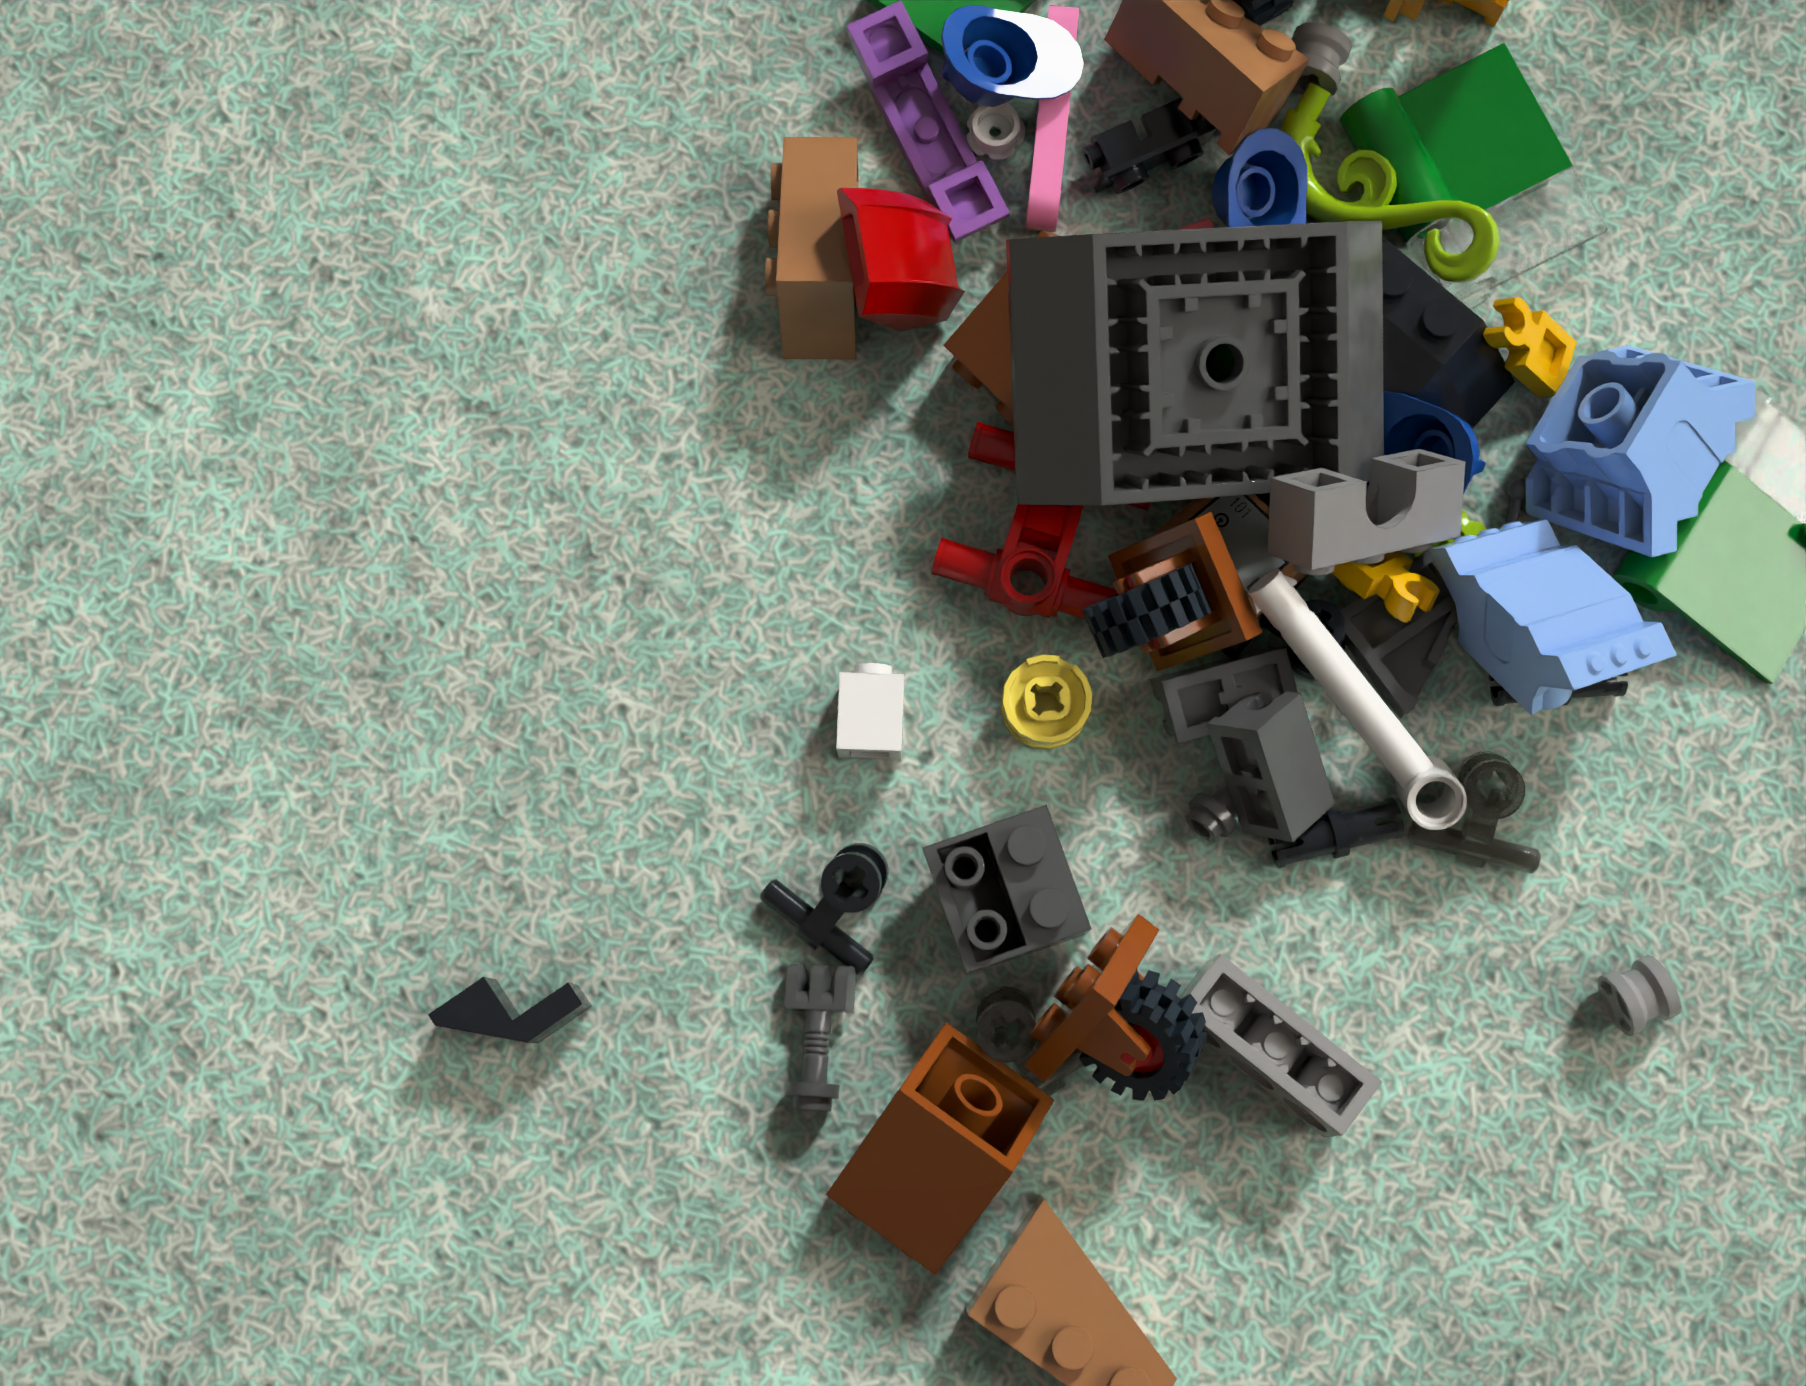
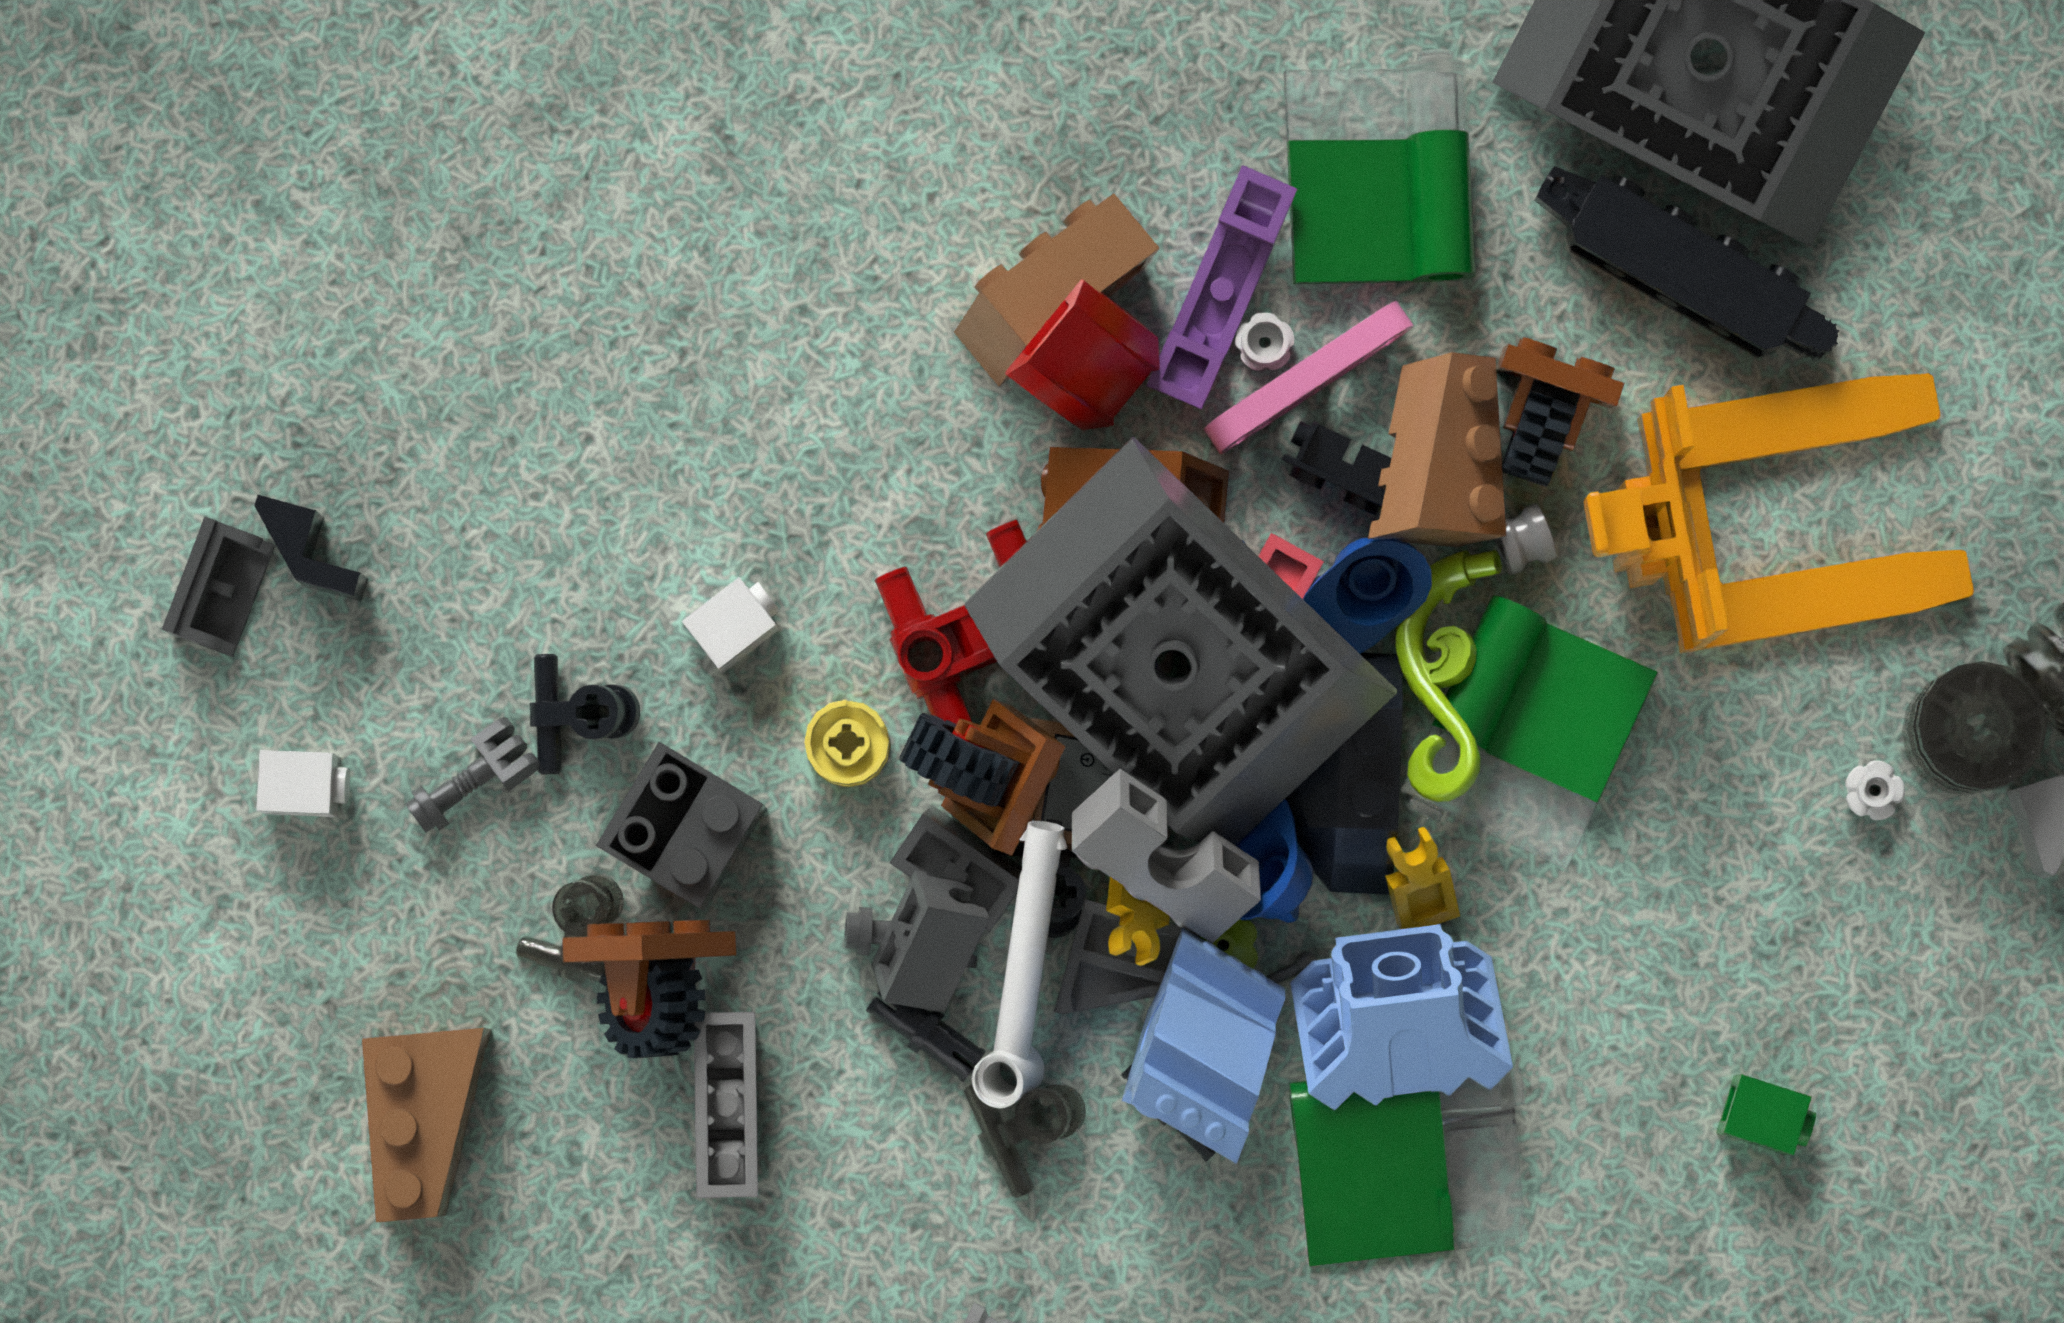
camera: 50 degrees right, 5 degrees up
(476, 1115) = (218, 587): none -> dark grey hinge
(701, 1183) = (301, 783): none -> white brick
(941, 1149) = (462, 928): dark orange slope -> none
(1008, 56) = (1317, 309): blue piece -> none

